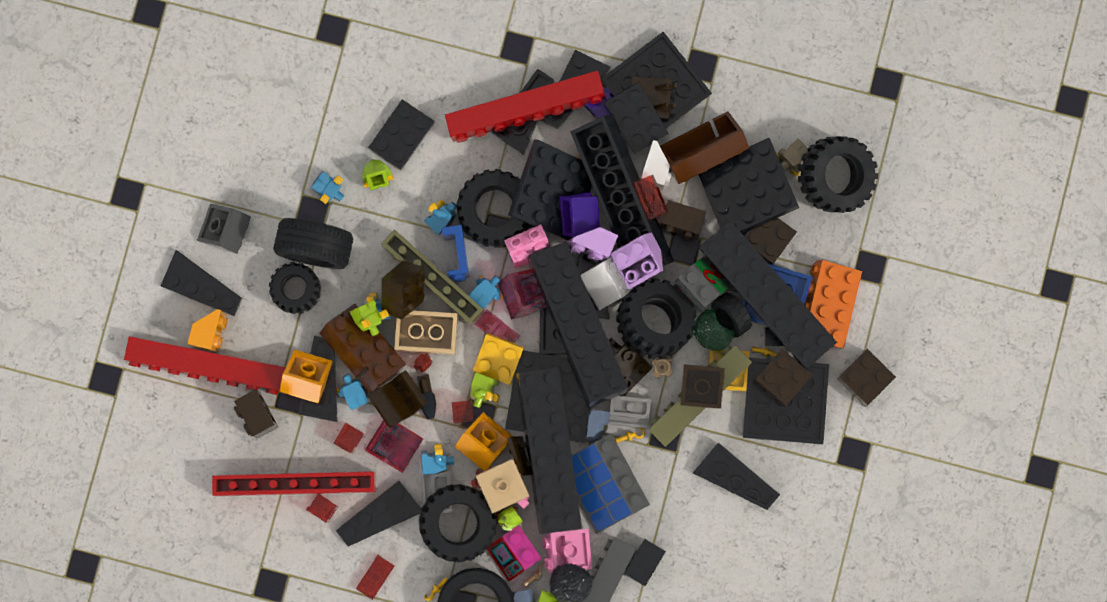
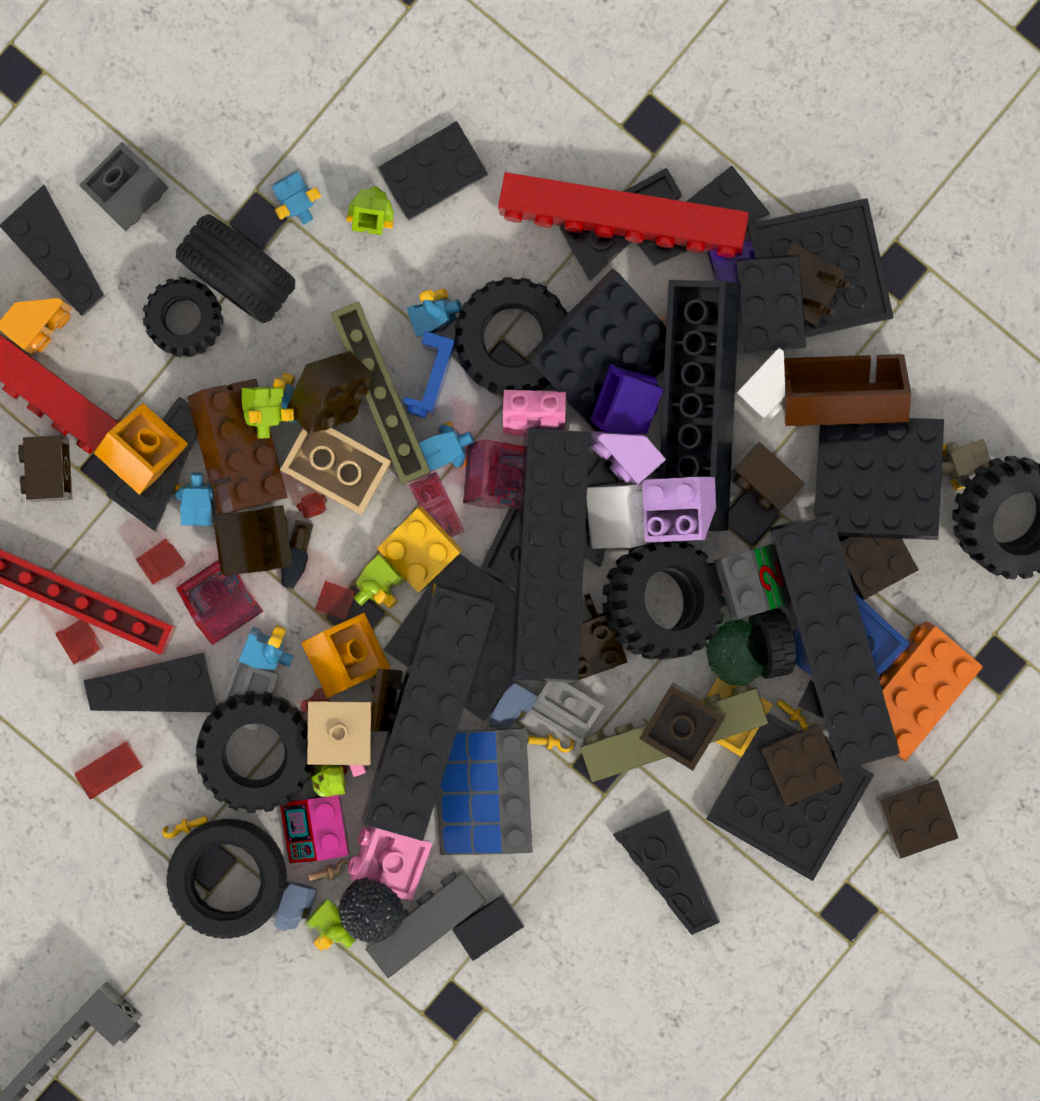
camera: 25 degrees right, 5 degrees up
(651, 197) = (737, 427): clear red plate -> none
(662, 372) = (644, 676): tan plate -> none

